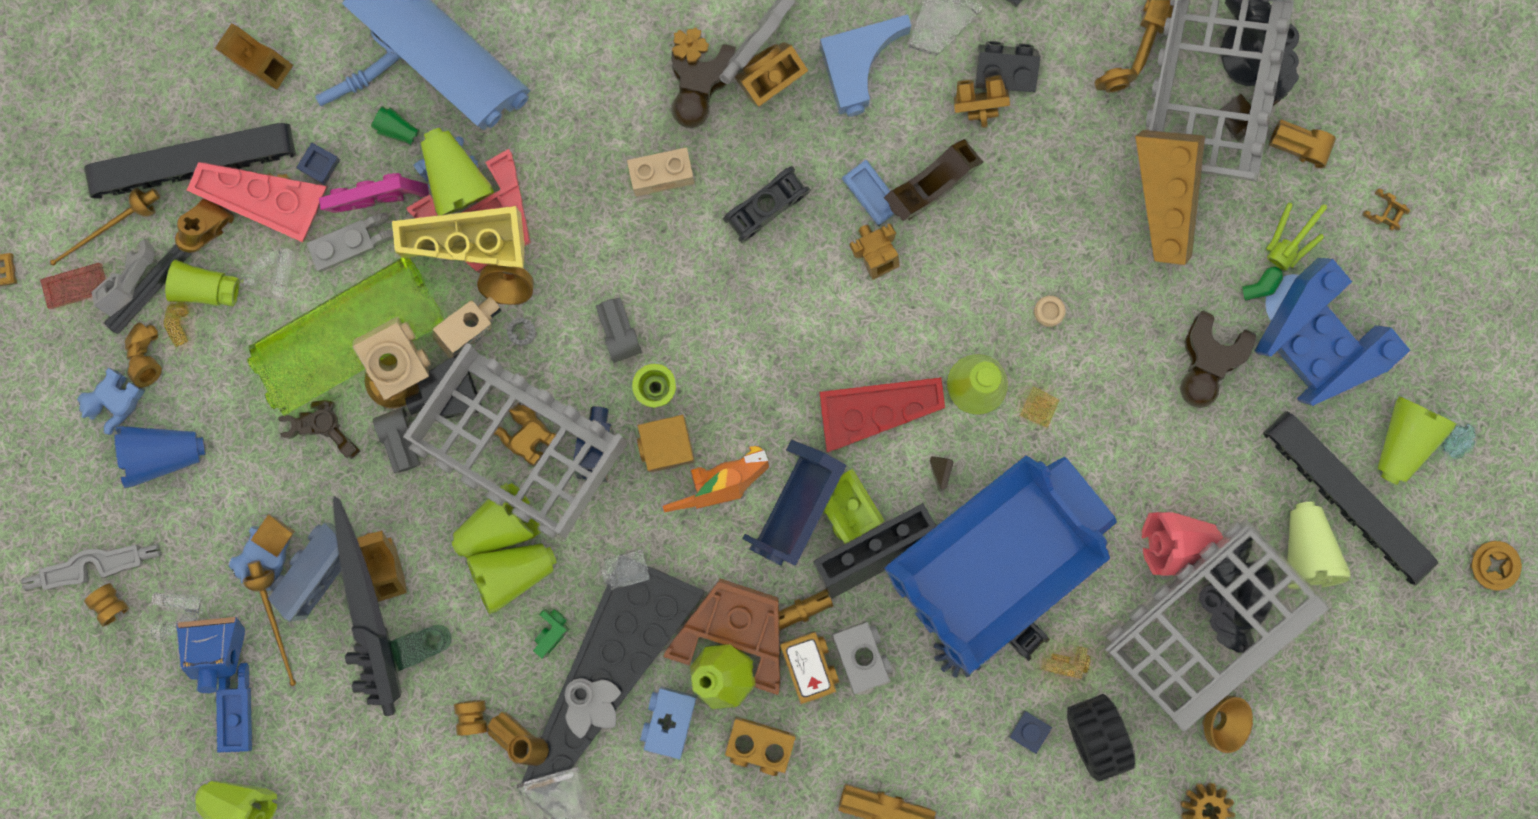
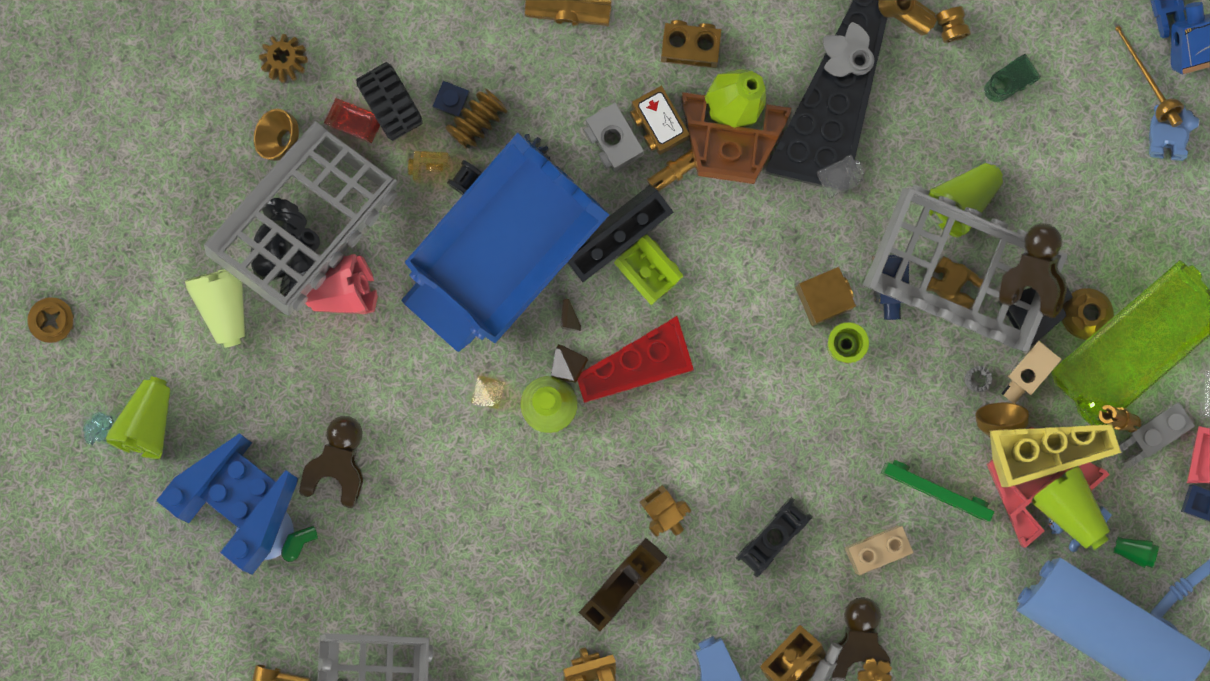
camera: 170 degrees right, 0 degrees up
(272, 535) = (1165, 151): pearl gold slope -> none
(309, 576) = (1122, 126): sand blue slope -> none
(321, 422) = (1142, 263): dark brown piece -> none
(366, 192) = (1148, 481): dark pink wing -> none
(371, 636) = (1055, 73): black piece -> none
(383, 261) = (1119, 418): none -> pearl gold pin
(383, 565) = (1061, 143): pearl gold brick -> none
(390, 431) = (1078, 266): dark grey piece -> none
(395, 339) = (1090, 343): tan brick -> none
(439, 422) = (1038, 270): none -> dark brown piece
(509, 573) = (944, 156): lime cone -> none
(550, 638) = (897, 105): green bracket -> none
(620, 336) = (887, 391): dark grey piece -> none
(622, 246) = (974, 507): none -> green plate
(669, 741) = (772, 34): medium blue brick -> none
(724, 481) = (766, 273): orange animal -> none
(798, 505) = (695, 260): dark blue panel -> none
(869, 191) = (680, 568): medium blue tile -> none
(951, 420) = (567, 364): none -> dark brown slope
(1006, 703) = (476, 119): none -> pearl gold piece
(1049, 311) = (493, 483): tan tile -> none
(1143, 726) = (352, 120): none -> clear red tile
(1171, 187) = (399, 611): pearl gold wedge -> none
(1285, 253) = (282, 576): lime plant -> none
(1351, 497) = (192, 358): black beam -> none
(1402, 209) = (183, 622): pearl gold piece -> none

